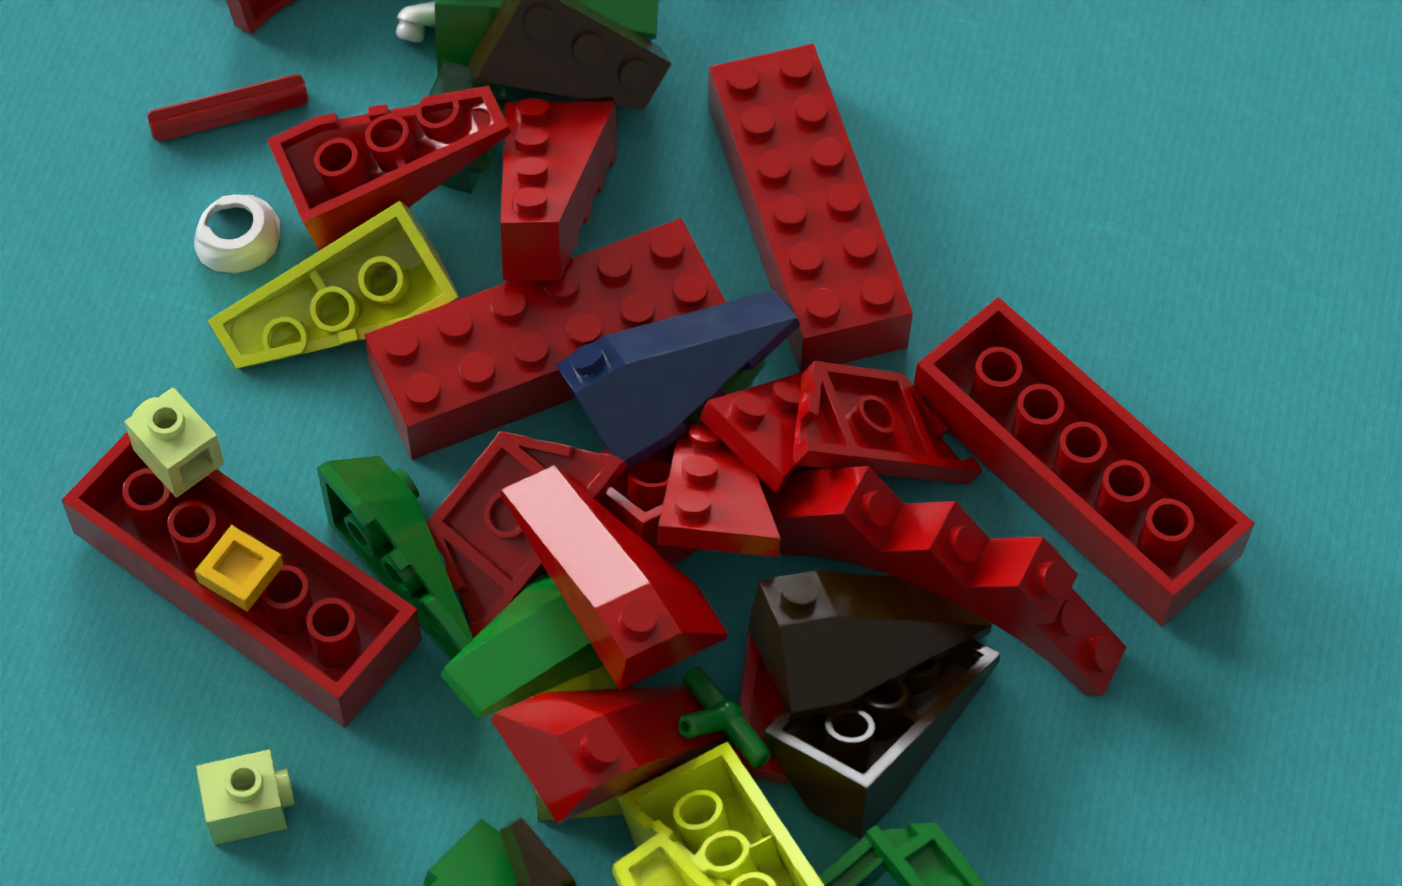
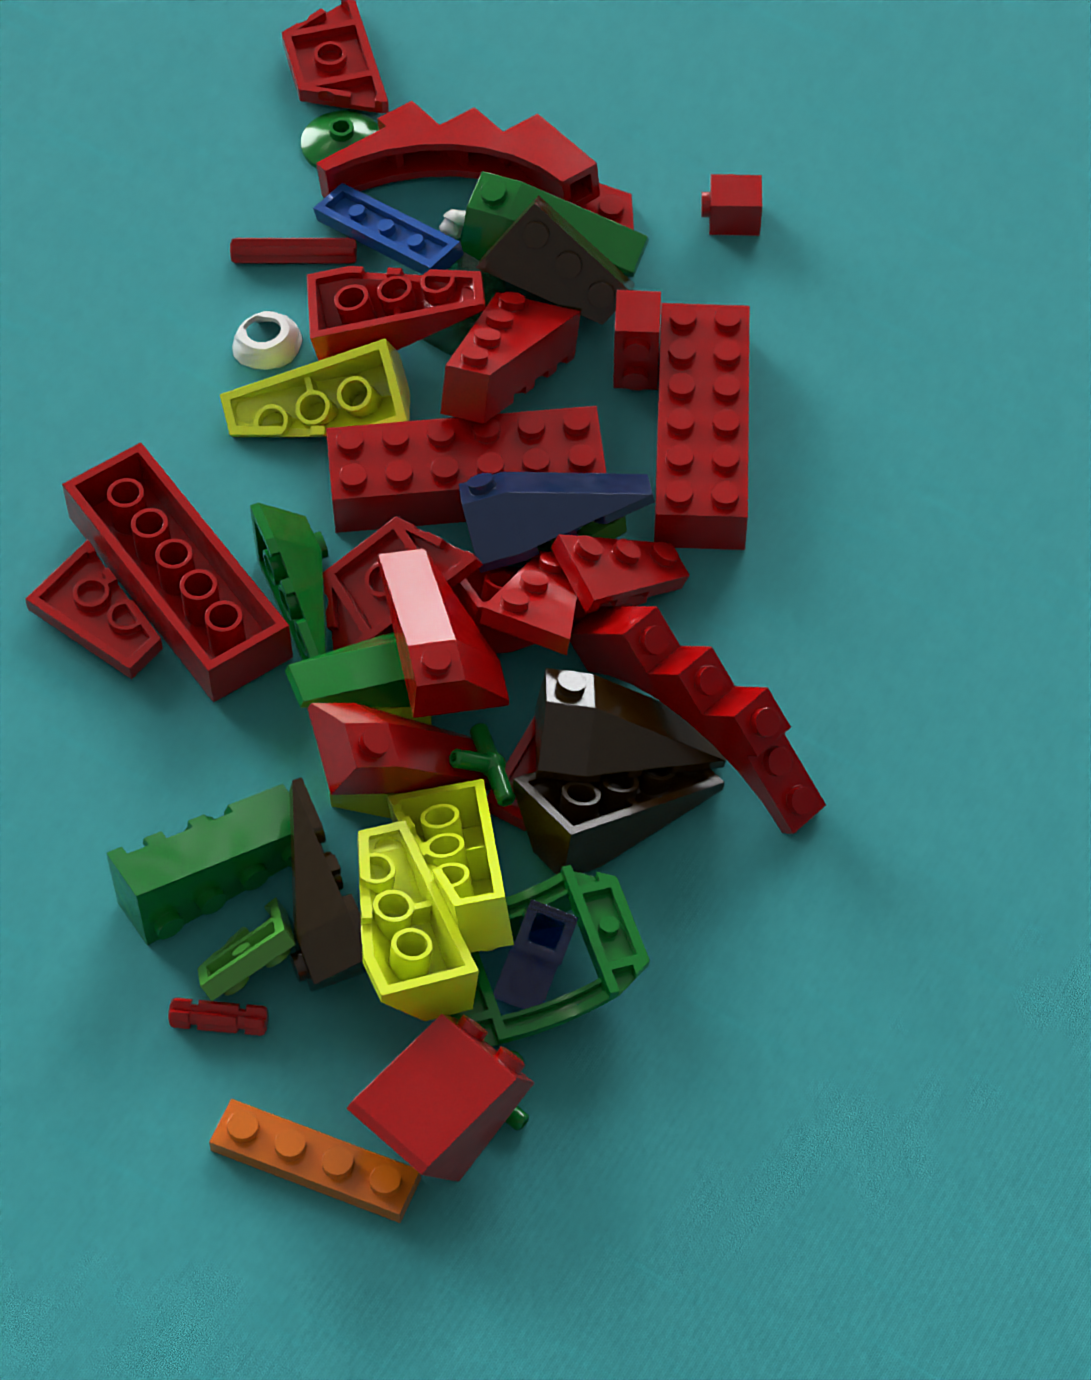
camera: 20 degrees right, 5 degrees down
(151, 650) = (95, 612): none -> red wing
(174, 441) = (154, 462): yellowish green brick -> none
(239, 568) = (168, 560): yellow plate -> none
(244, 796) = (120, 726): yellowish green brick -> none
(341, 55) = (387, 230): none -> blue plate
(695, 119) = (636, 339): none -> red brick
(874, 421) = (688, 589): red wing -> none
(1082, 461) = (840, 659): red brick -> none

